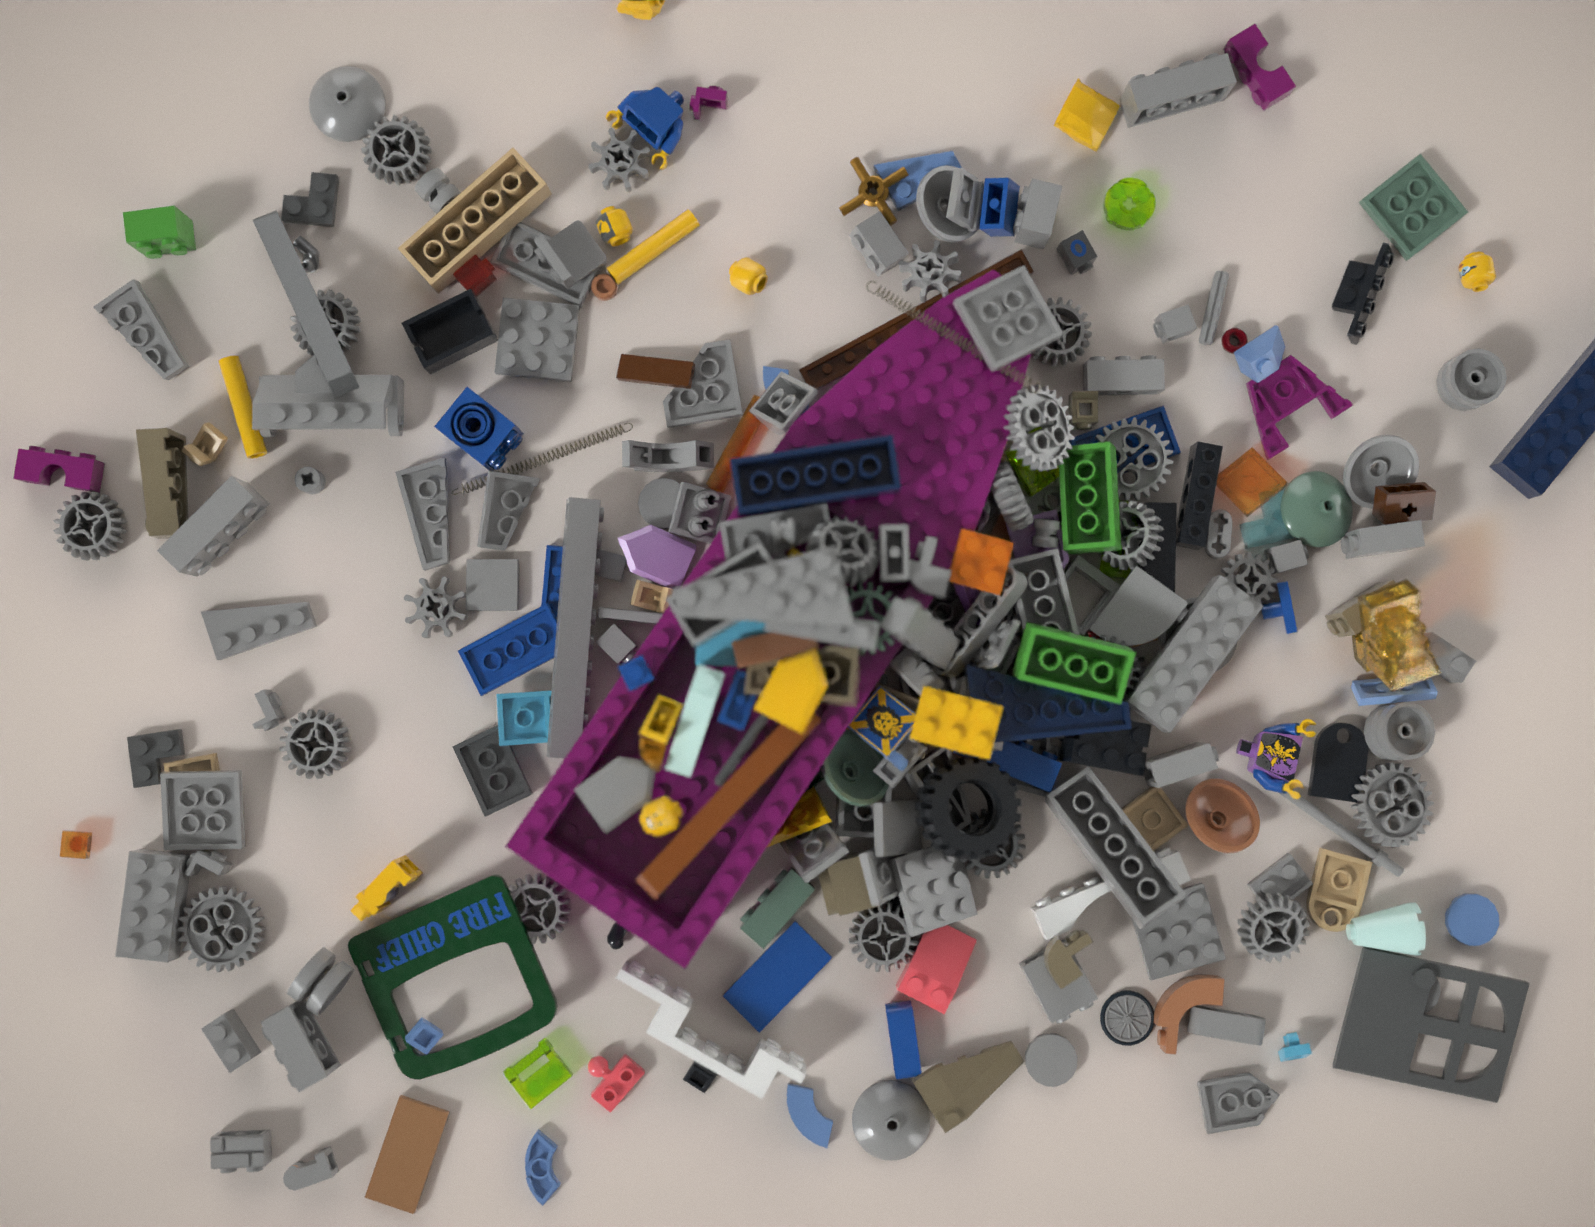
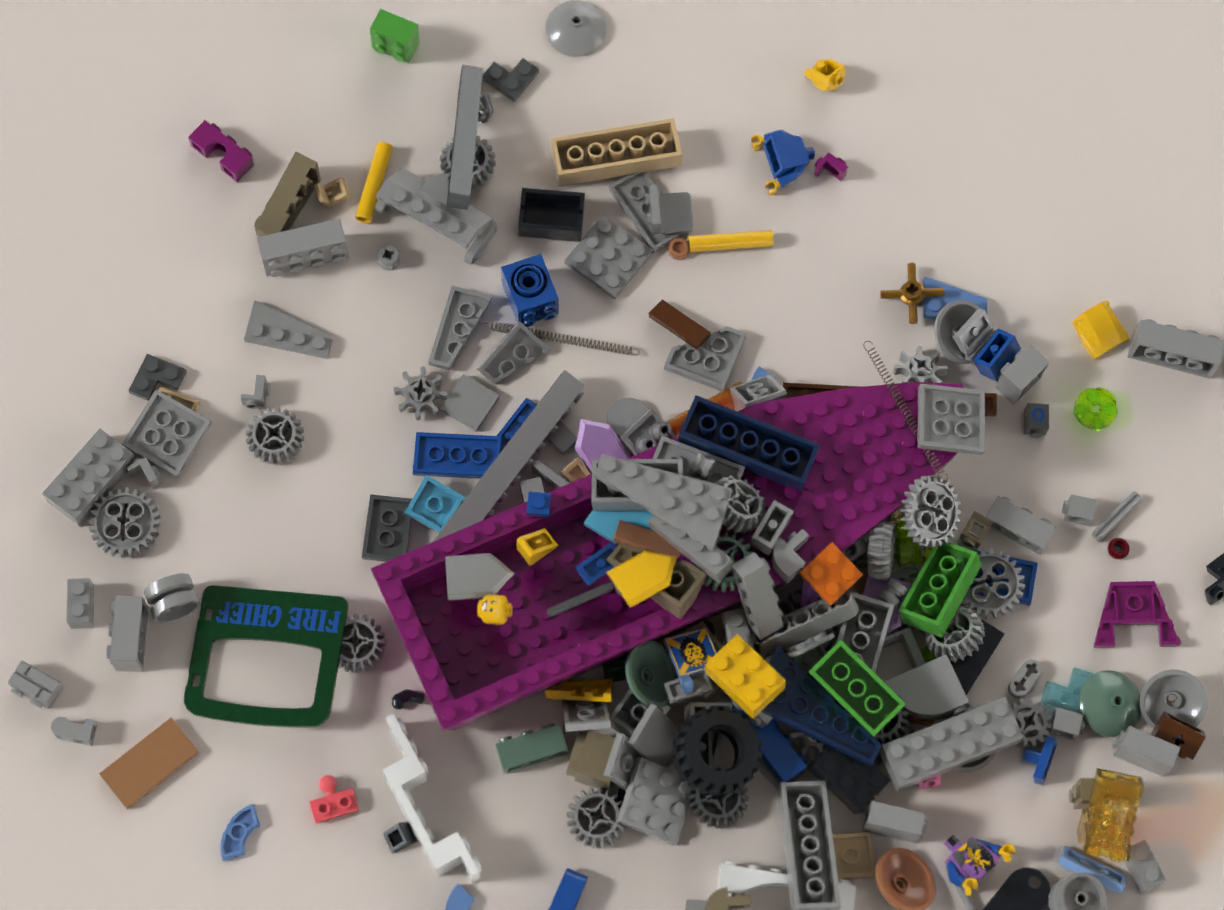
camera: 30 degrees right, 15 degrees down
(71, 531) = (202, 195): light grey gear -> none
(75, 844) = (63, 404): clear orange plate -> none
(140, 324) = (339, 88): light grey wing -> none
(385, 887) = (259, 560): yellow hips -> none
(405, 132) = (597, 67): light grey gear -> none
(424, 1035) = (218, 683): medium blue tile -> none
(435, 188) = (602, 116): light grey wheel -> none
(476, 275) = (594, 188): clear red brick -> none
(543, 1080) = (281, 769): clear neon green plate -> none
(614, 226) = (711, 211): yellow head -> none
(617, 150) = (745, 163): light grey gear -> none
(652, 753) = (515, 564): pearl gold tile -> none
(669, 457) = (651, 388): light grey arch -> none
(694, 720) = (561, 558): light aqua slope -> none
(722, 807) = (544, 629): dark orange beam -> none
(748, 276) = (786, 299): yellow head -> none
(777, 976) = (499, 800): blue tile -> none
(878, 244) = (893, 330): light grey brick -> none
(936, 967) = (622, 863): coral slope -> none
(1077, 325) = (997, 467): light grey gear -> none
(1198, 495) = (1024, 640): black brick -> none
(1250, 482) = (1070, 653): clear orange tile -> none
(1261, 355) = (1132, 568): medium blue slope -> none

